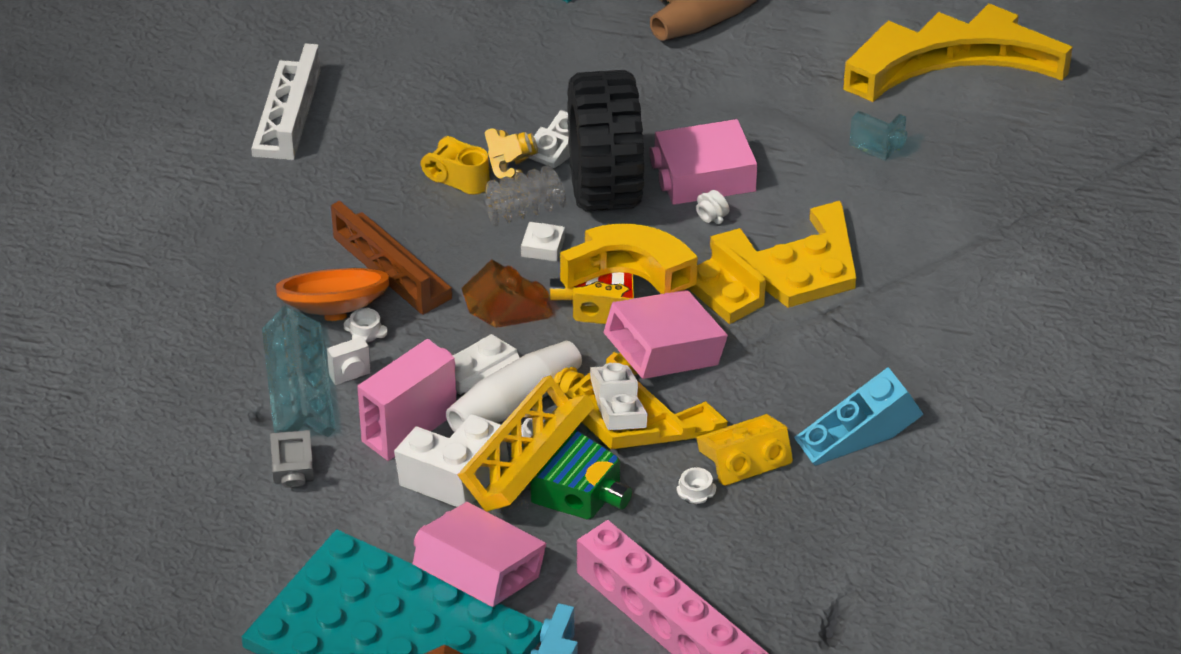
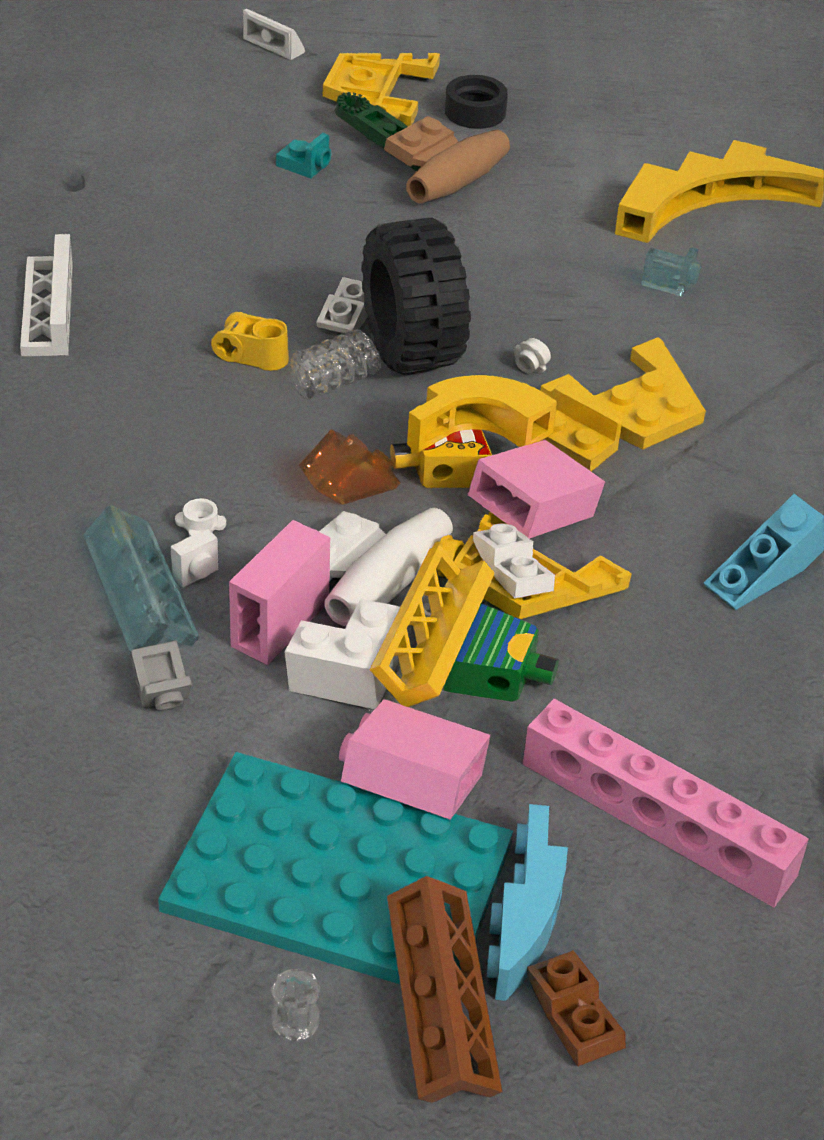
camera: 15 degrees left, 0 degrees up
(333, 291) = (157, 484): orange dish -> none
(383, 253) = (205, 445): dark orange fence -> none
(509, 148) = (308, 318): yellow piece -> none
(543, 241) = (365, 409): white plate -> none
(696, 485) = (623, 648): white plate -> none
(704, 160) = (512, 310): bright pink brick -> none
(747, 448) = (663, 599): yellow bracket -> none

